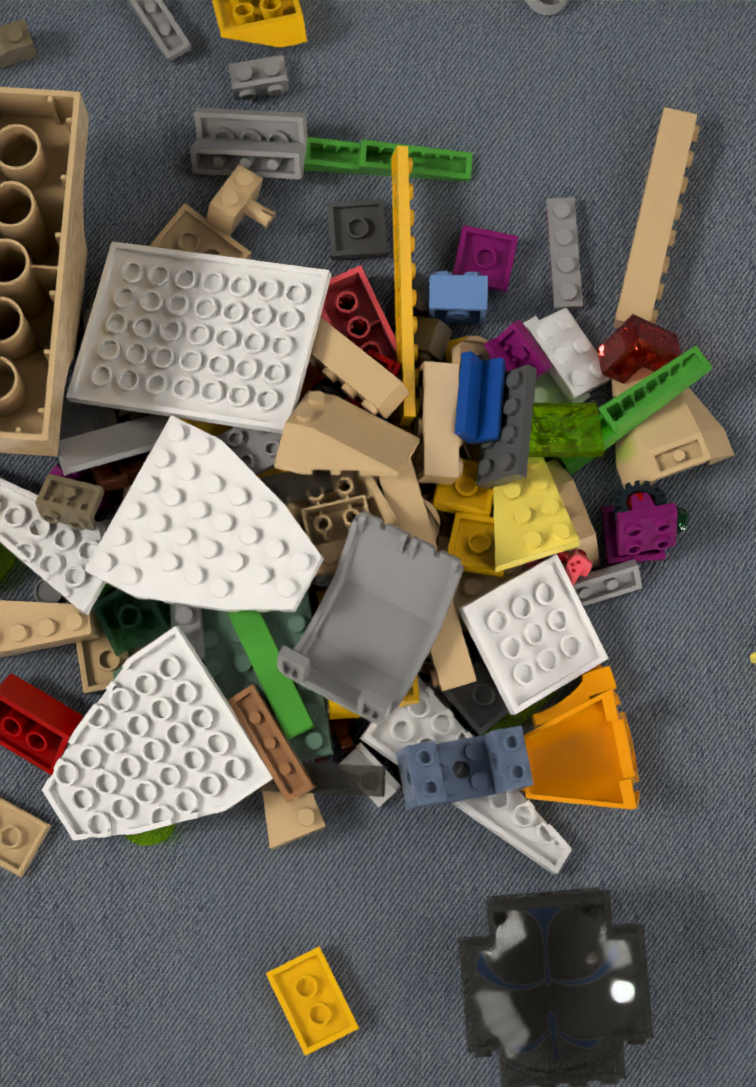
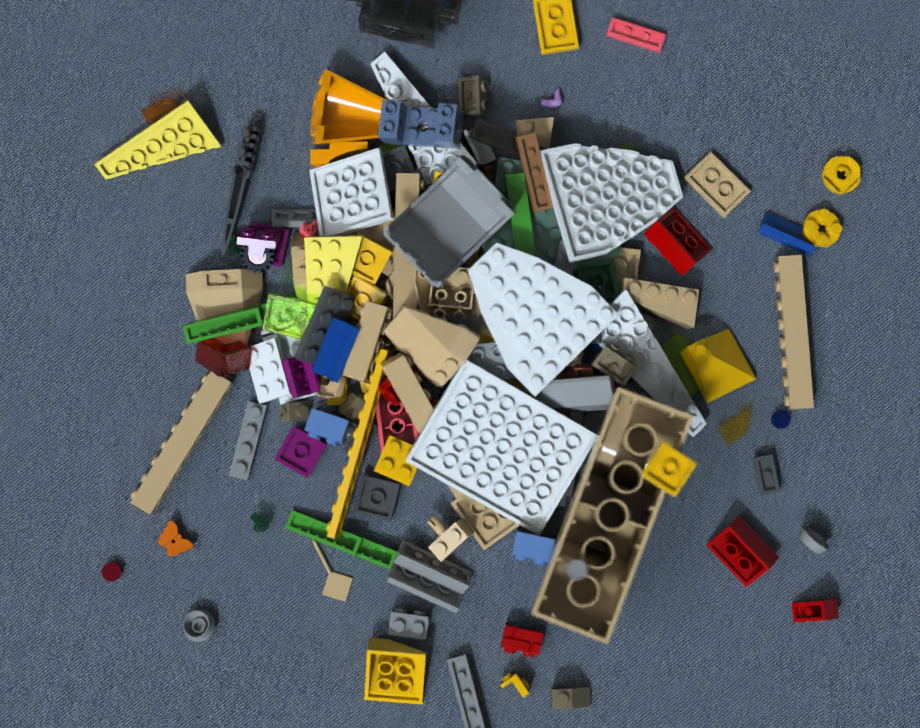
camera: 160 degrees left, 5 degrees up
(33, 168) = (576, 570): none -> light grey piece
(81, 43) = (521, 685): none -> yellow bracket
(102, 99) = (521, 639): none -> red brick
(114, 220) = (532, 547): none -> medium blue brick
(184, 1024) = (636, 35): none -> coral tile
(276, 878) = (553, 103): none -> lavender animal
(348, 276) = (393, 463): none -> yellow plate
(375, 100) = (336, 585): none -> tan piece
(402, 848) = (473, 95): none -> dark tan bracket
(507, 147) = (261, 524): none -> clear green plate
(509, 309) = (294, 412): none -> dark tan bracket
(608, 85) = (171, 533): none -> orange animal
(689, 24) = (111, 571): none -> dark red tile
(705, 623) = (241, 173): none -> dark grey piece

